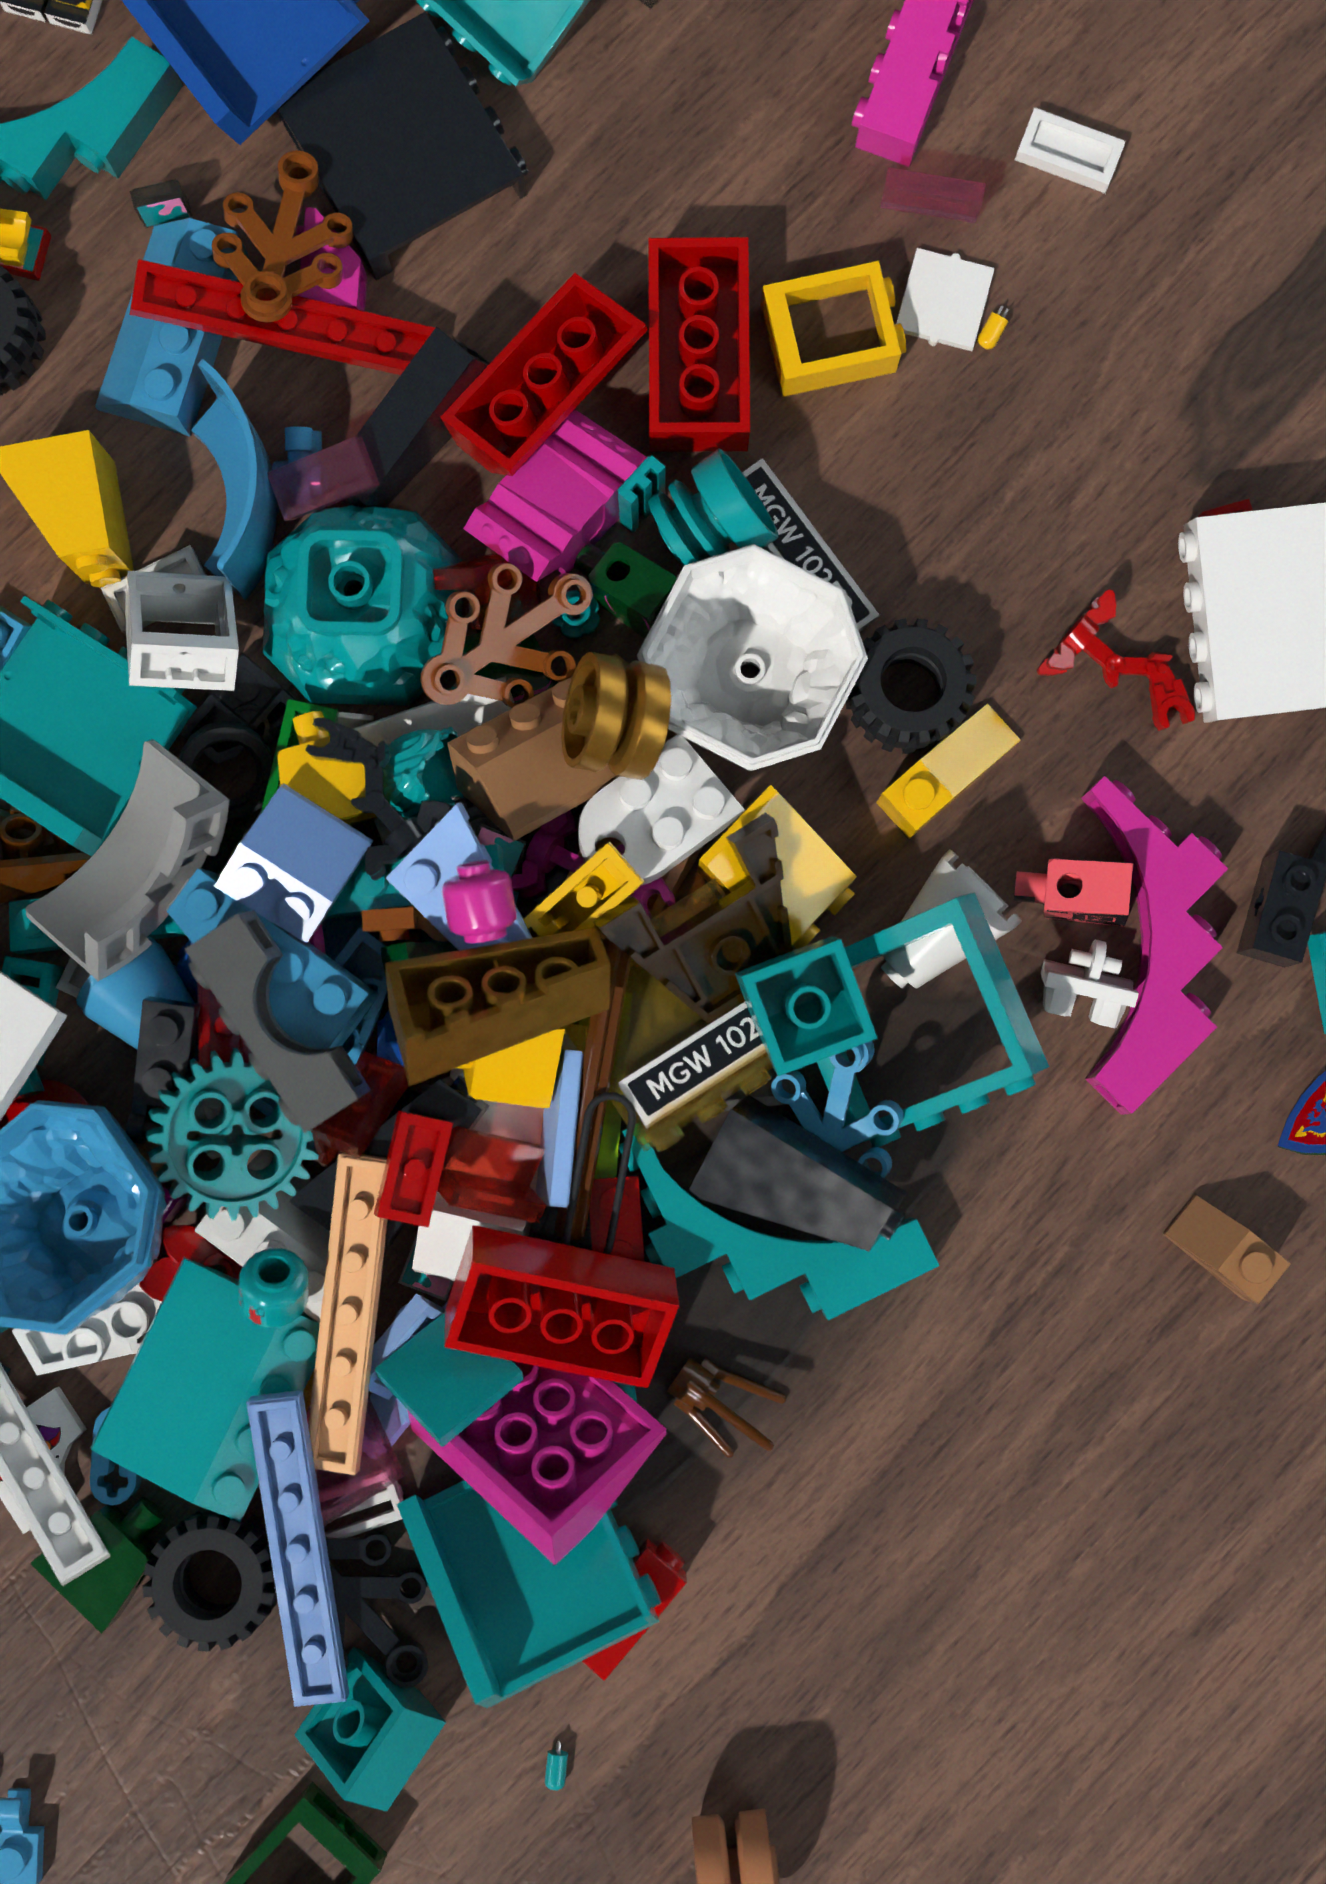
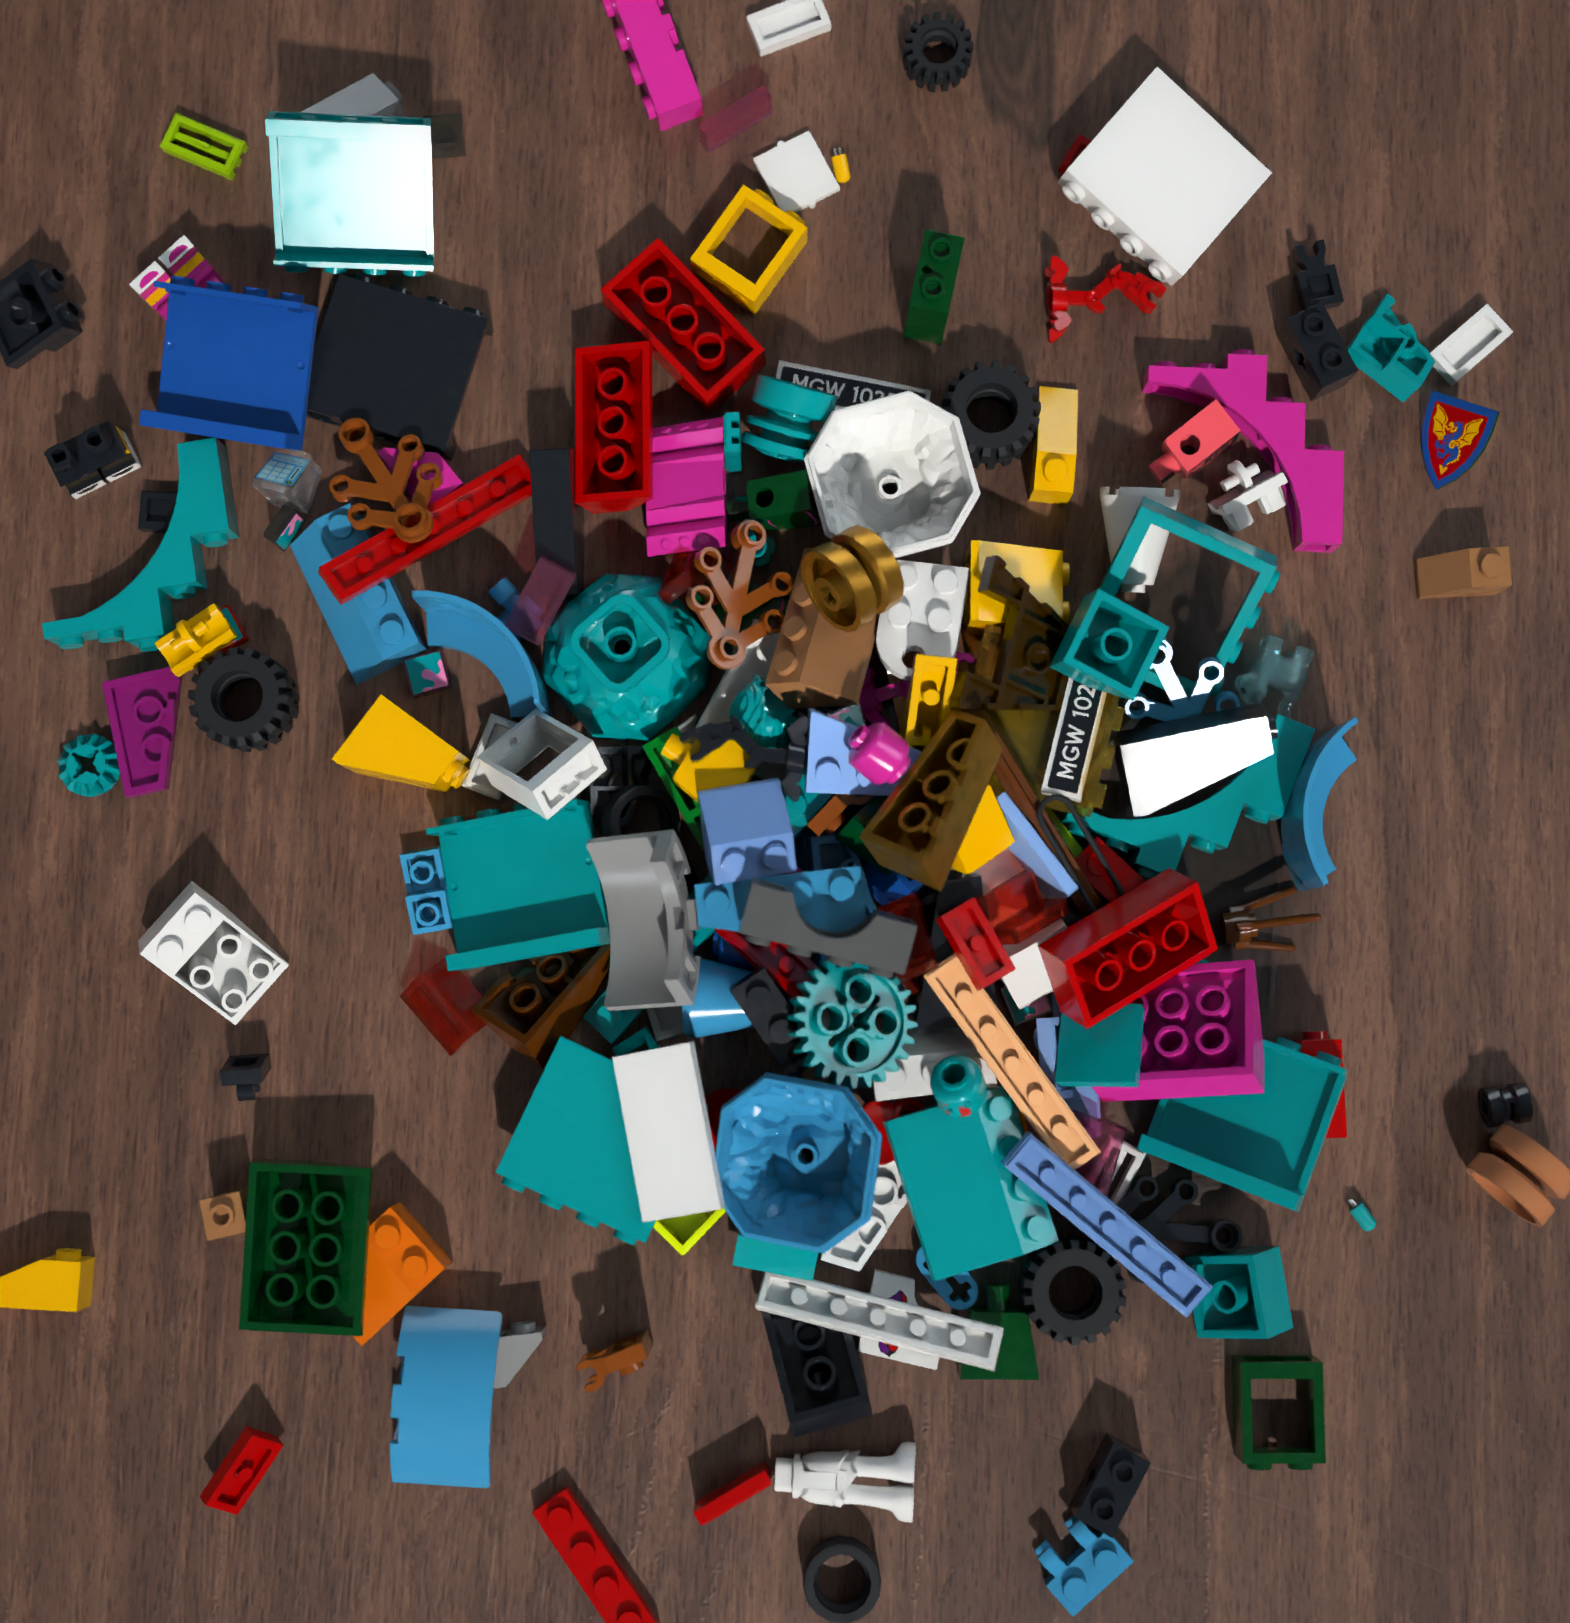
camera: 40 degrees left, 0 degrees up
(60, 82) = (156, 510): none -> black tile
(78, 1794) = (1109, 1485): none -> black brick
(167, 457) = (427, 673): none -> tile
(203, 161) = (289, 480): none -> clear slope
(788, 1792) = (1505, 1105): none -> black wheel
(865, 1331) = (1303, 817): none -> dark azure panel
(956, 1174) = (1280, 673): none -> clear light blue animal
(957, 524) = (933, 286): none -> dark green window
(1202, 280) = (941, 31): none -> black tyre

